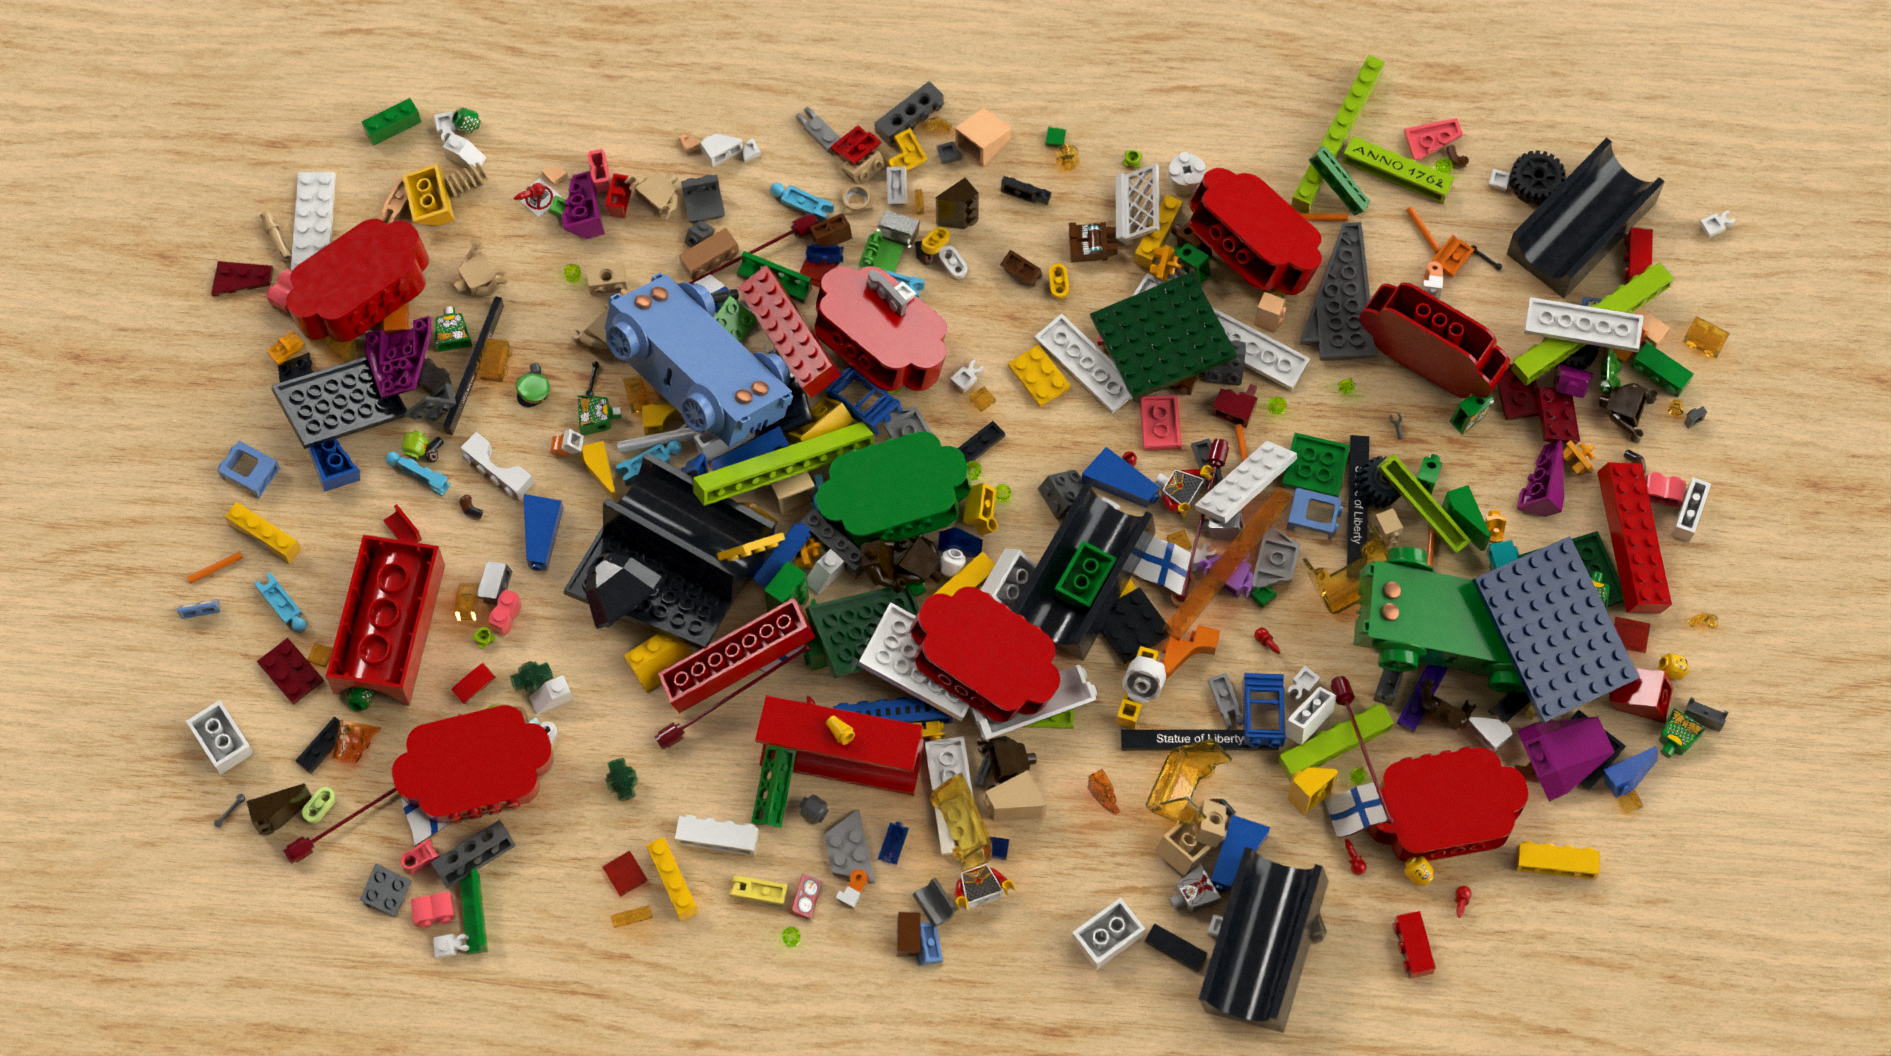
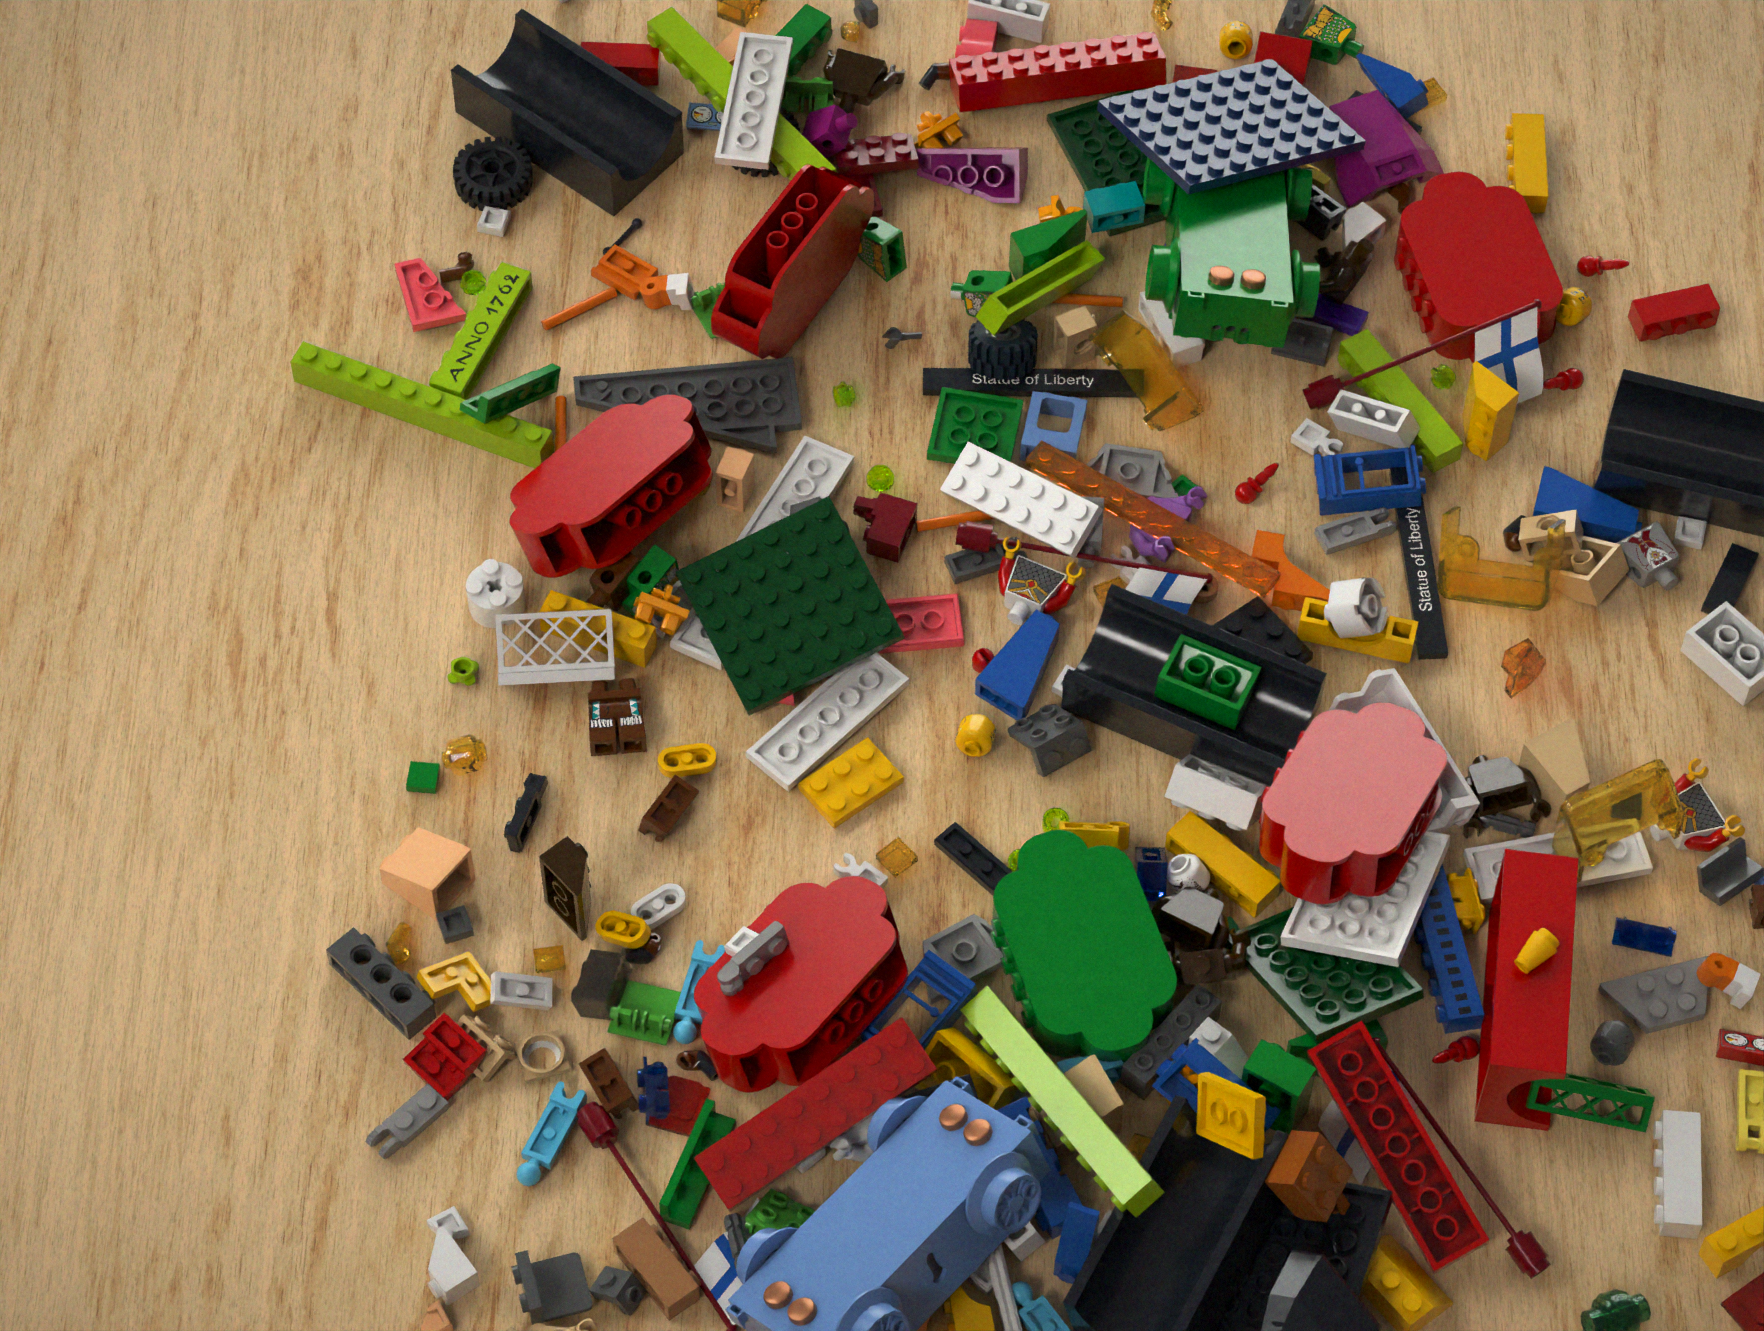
camera: 95 degrees left, 10 degrees down
(708, 590) = (1310, 1177): none -> dark orange hinge
(1067, 447) = (975, 733): none -> yellow head

